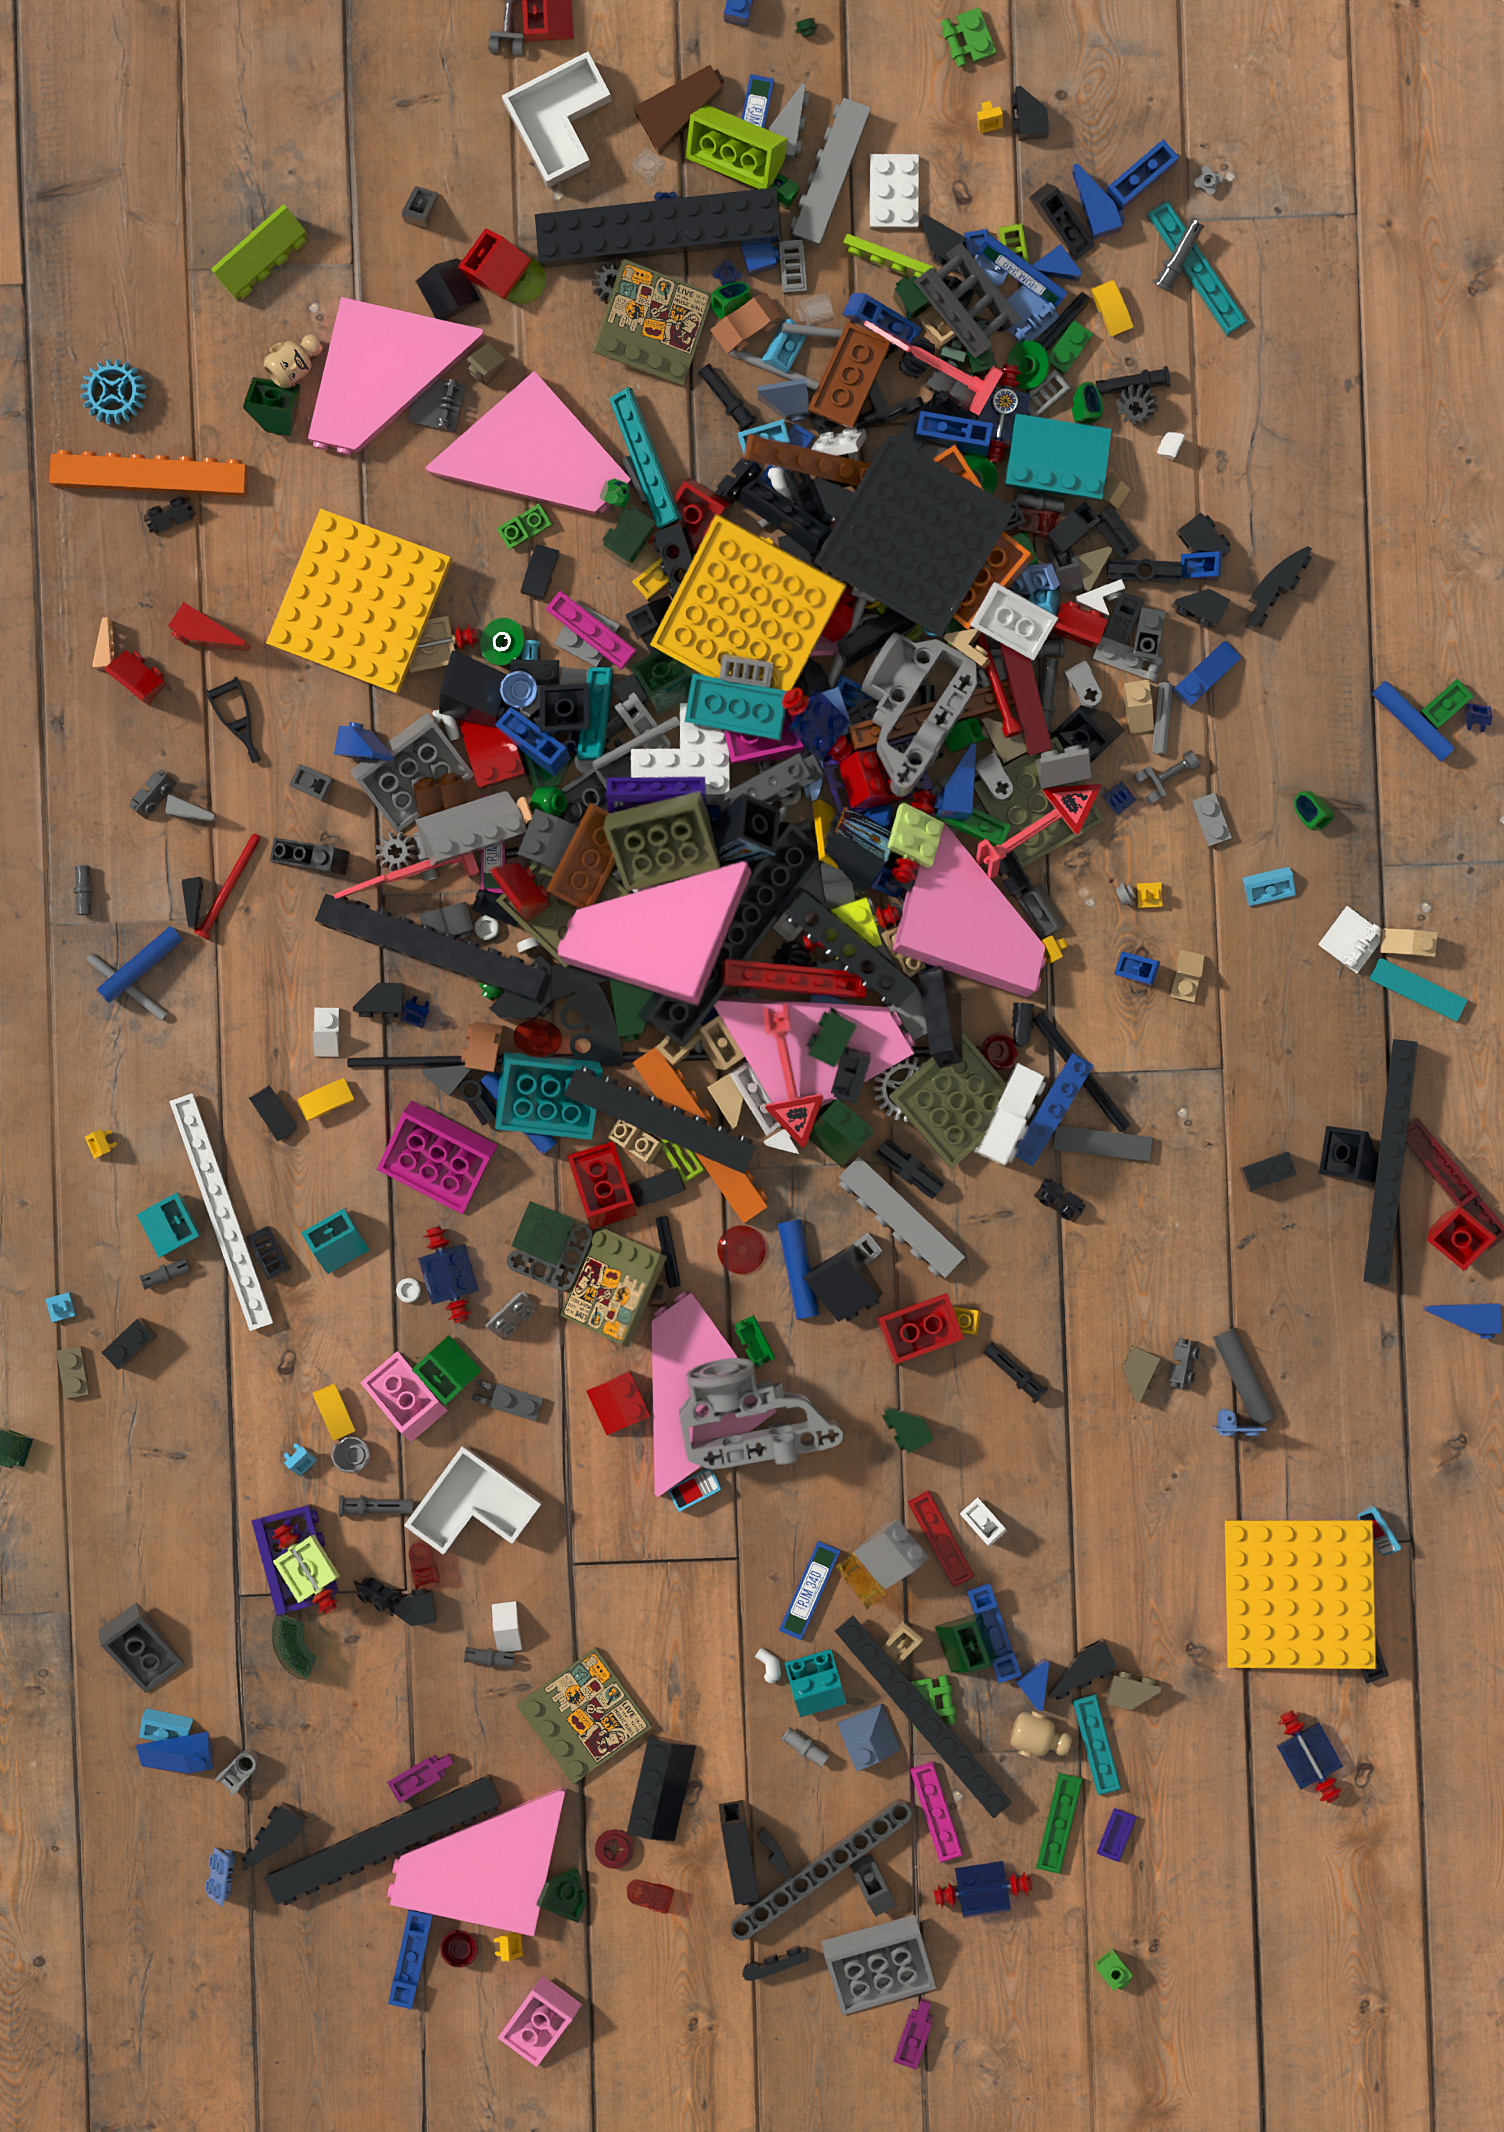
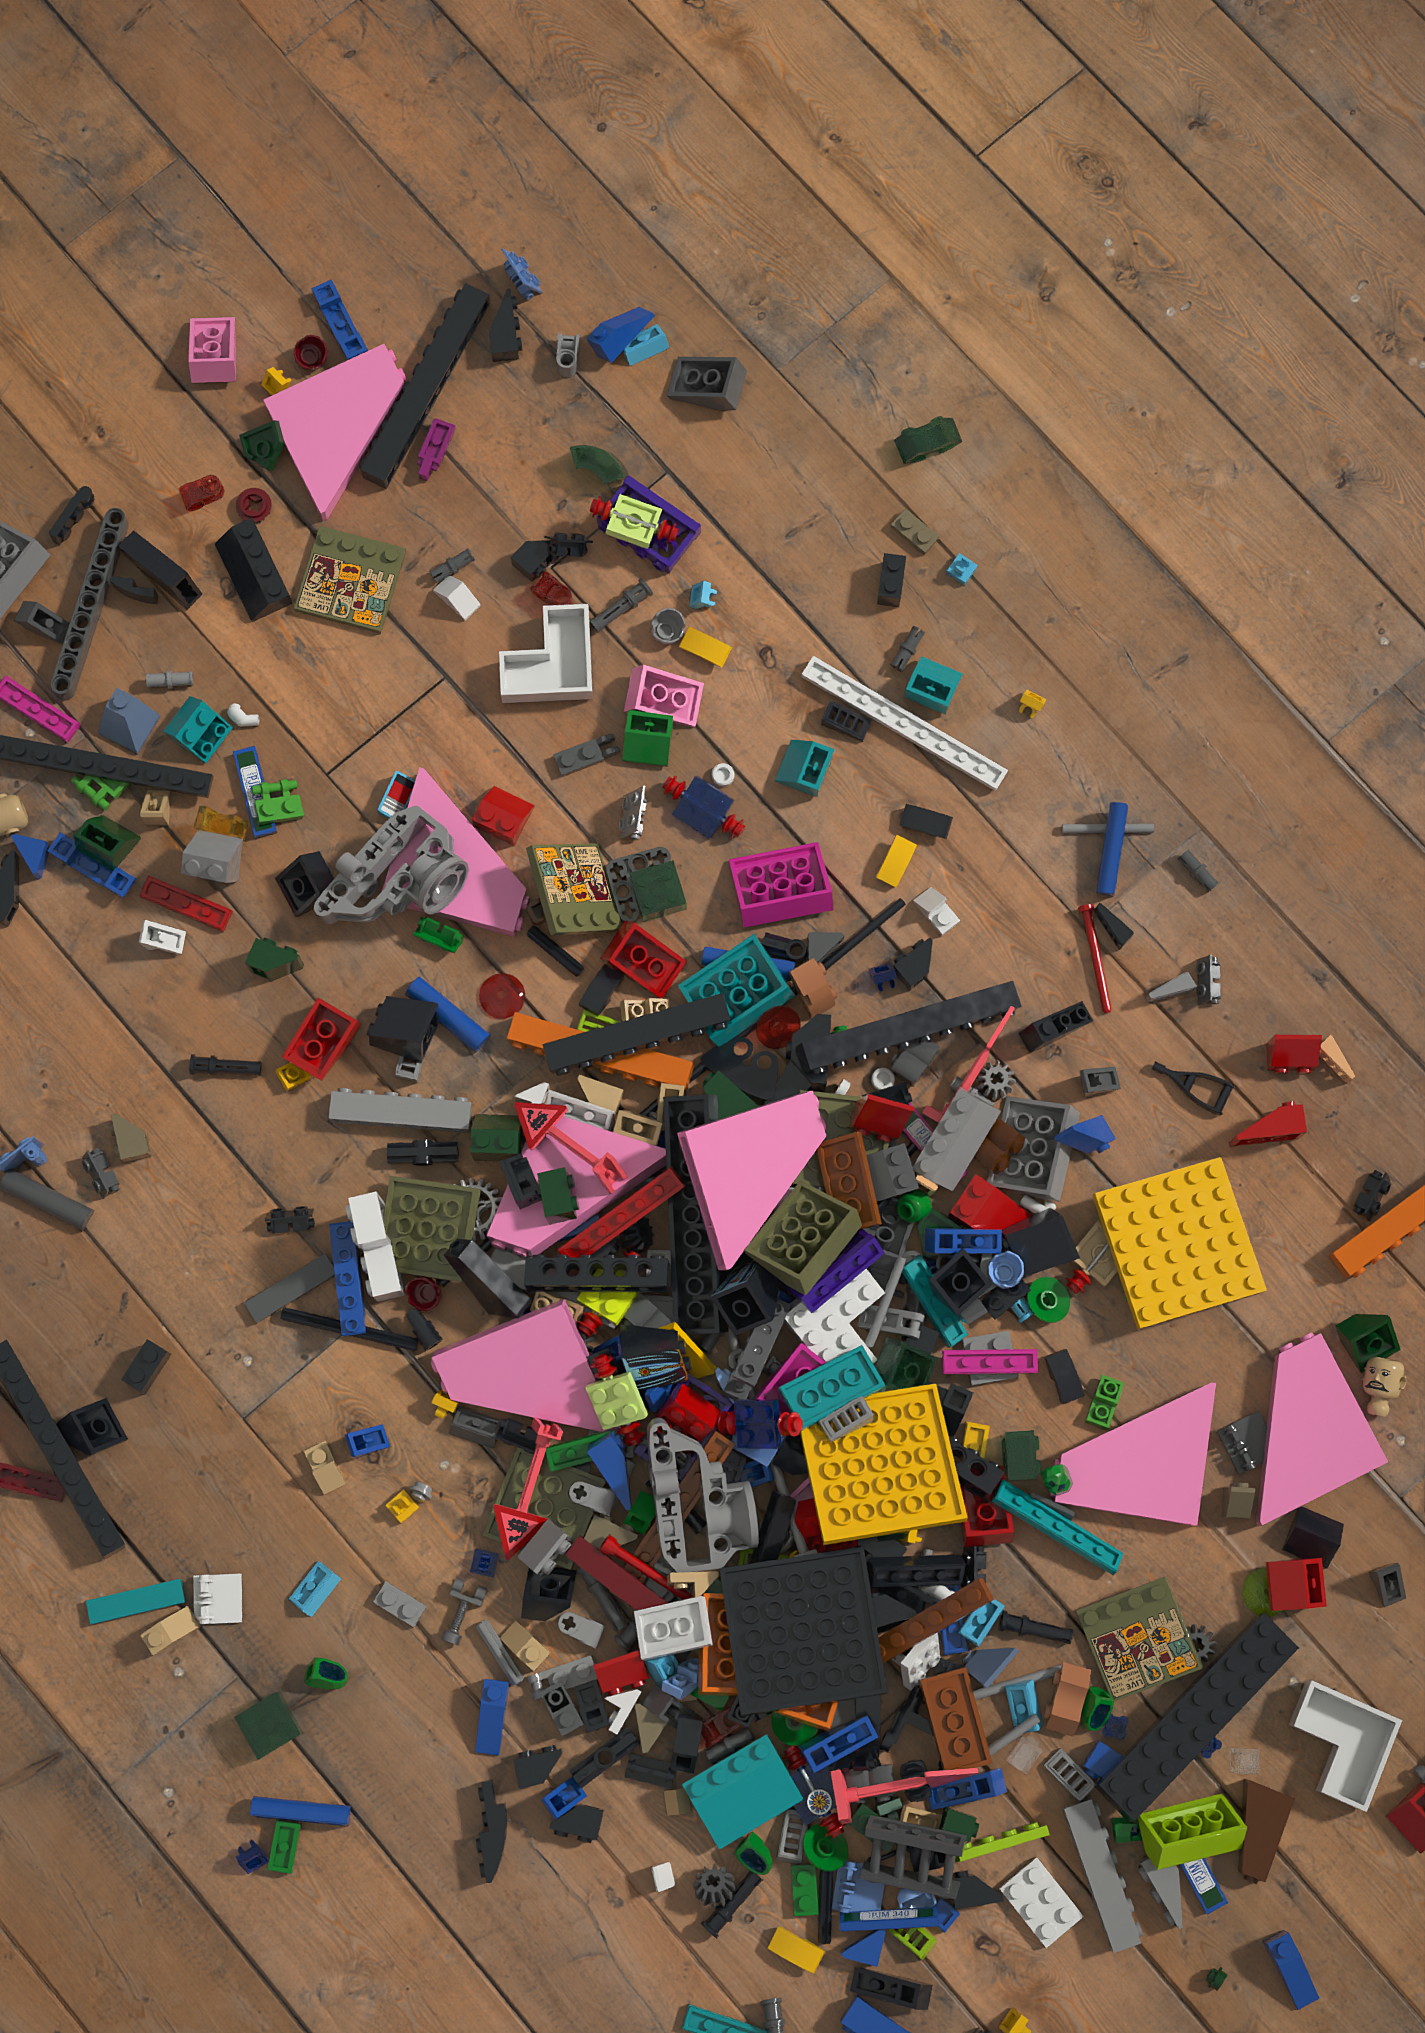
camera: 140 degrees right, 10 degrees down
(802, 1558) = (280, 808): none -> bright green plate
(828, 1474) = (304, 882): none -> black slope
(1387, 806) = (268, 1725): none -> clear green brick

